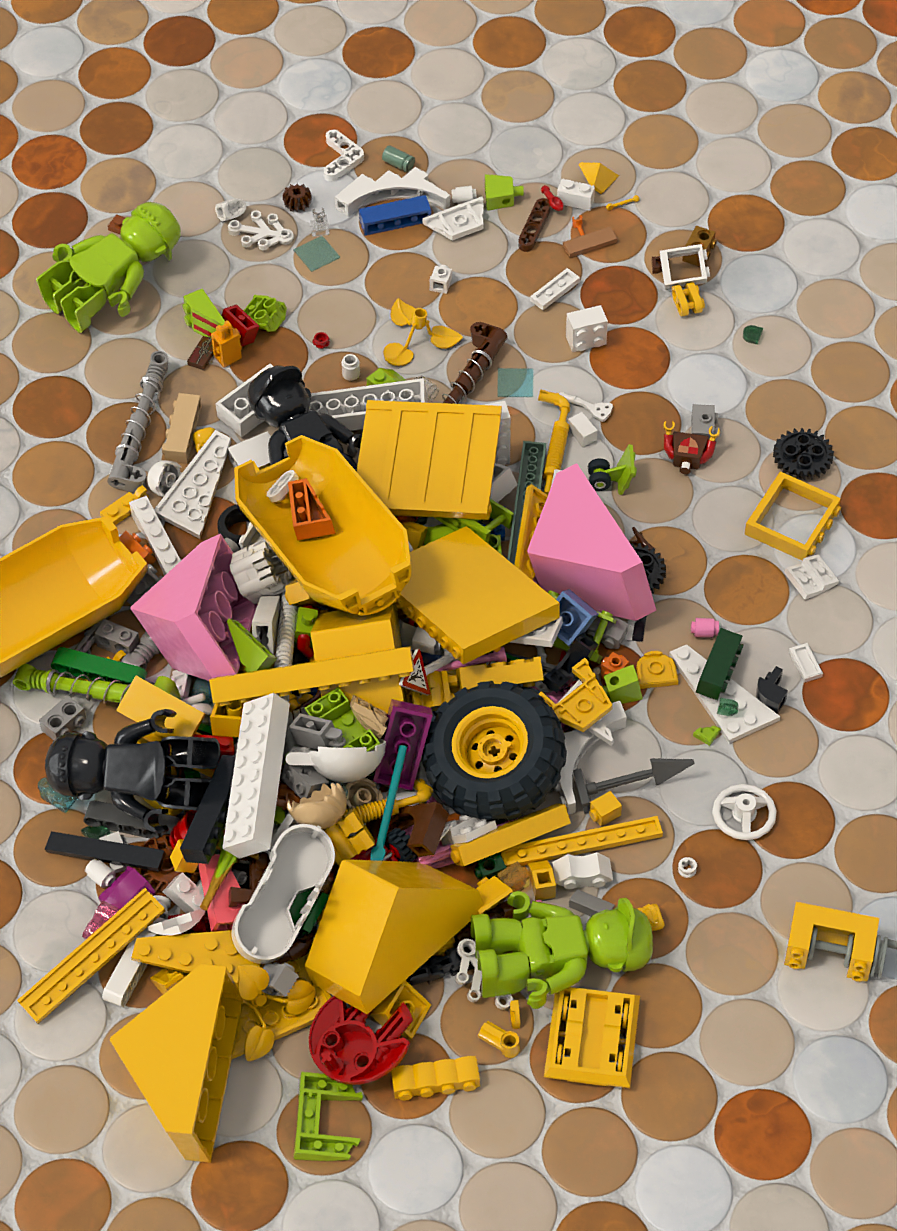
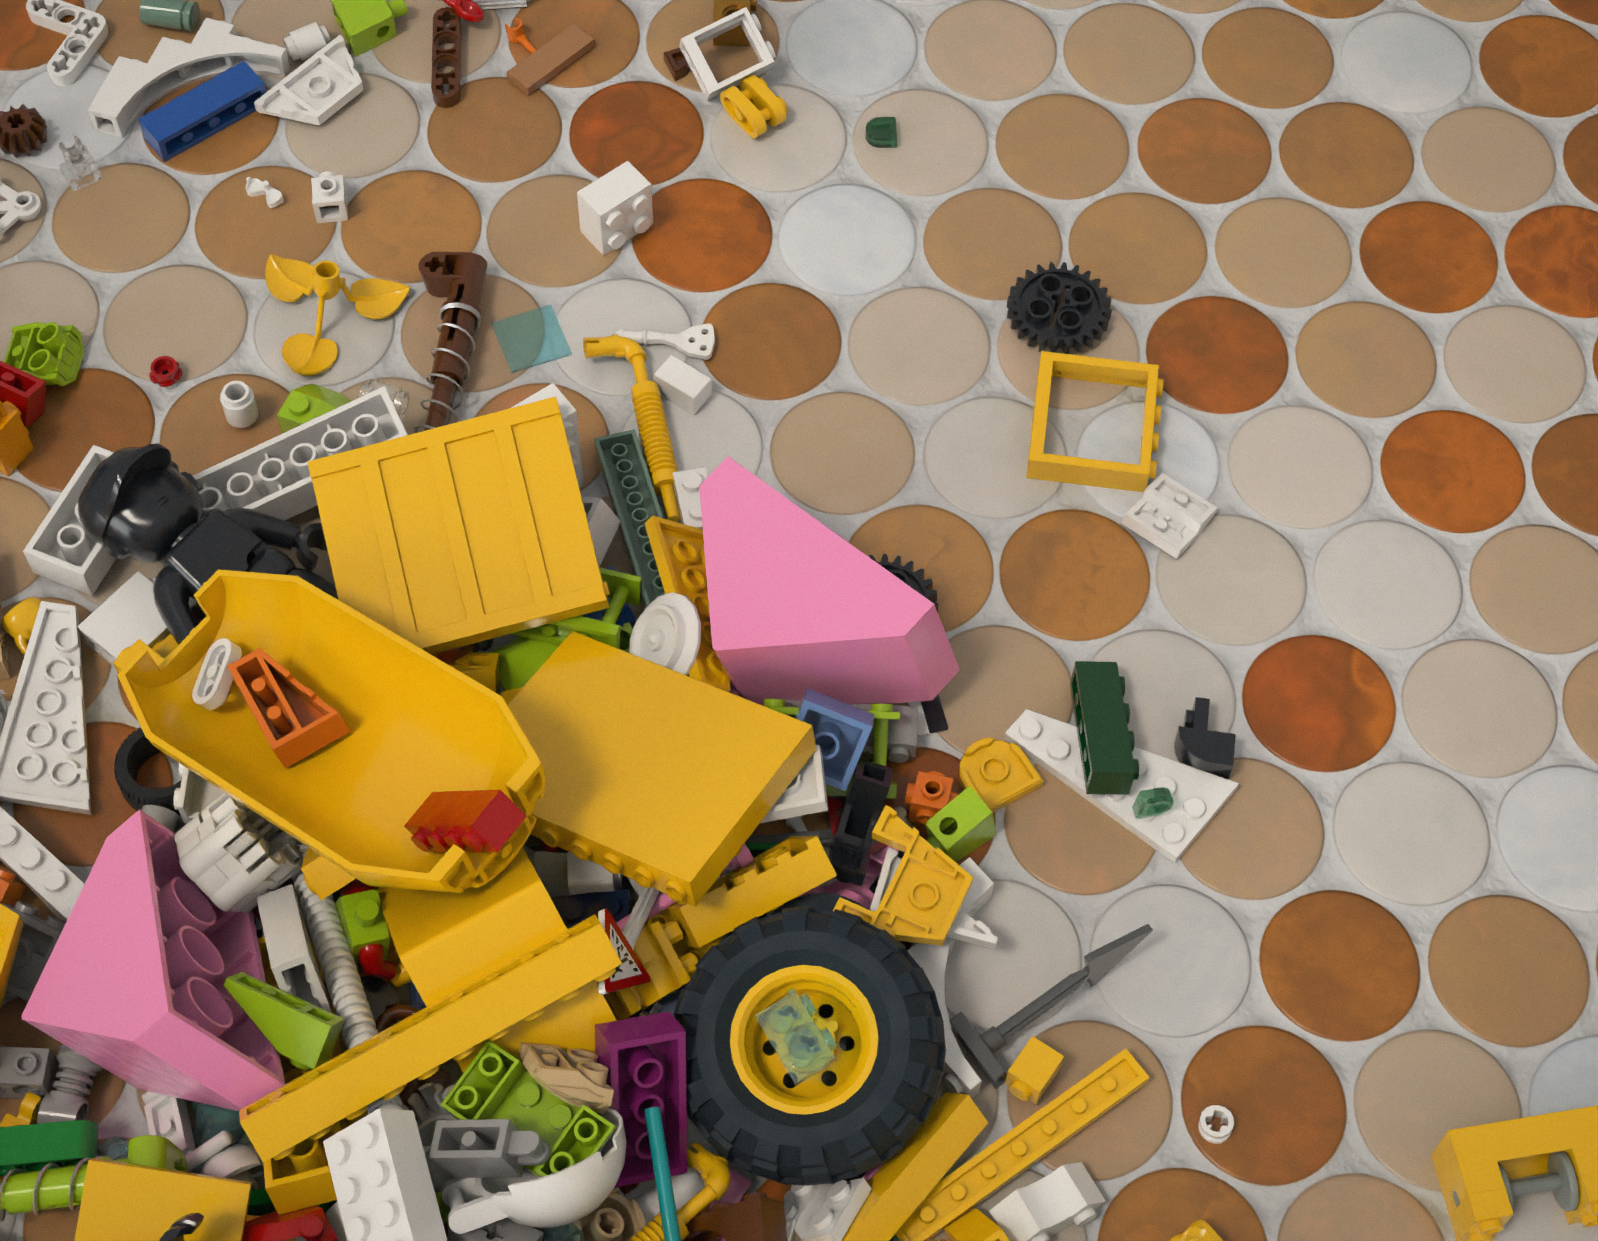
camera: 25 degrees left, 5 degrees up
(316, 253) = (92, 218): clear light blue piece -> none
(367, 581) = (468, 819): none -> red brick
(405, 262) = (257, 188): none -> white piece
(484, 737) = (796, 1036): none -> clear light blue bracket
(513, 541) = (668, 633): none -> white piece
(555, 289) = (529, 156): white plate -> none
(602, 475) = (788, 438): plate -> none
(640, 539) = (867, 547): reddish brown bar -> none
(688, 449) = (873, 361): torso -> none
(702, 419) = (877, 311): light grey brick -> none
(705, 627) = (1044, 668): bright pink brick -> none
(707, 734) = (1133, 860): lime tile -> none
(744, 810) = (1262, 981): white piece -> none
(805, 662) = (1231, 670): white tile -> none

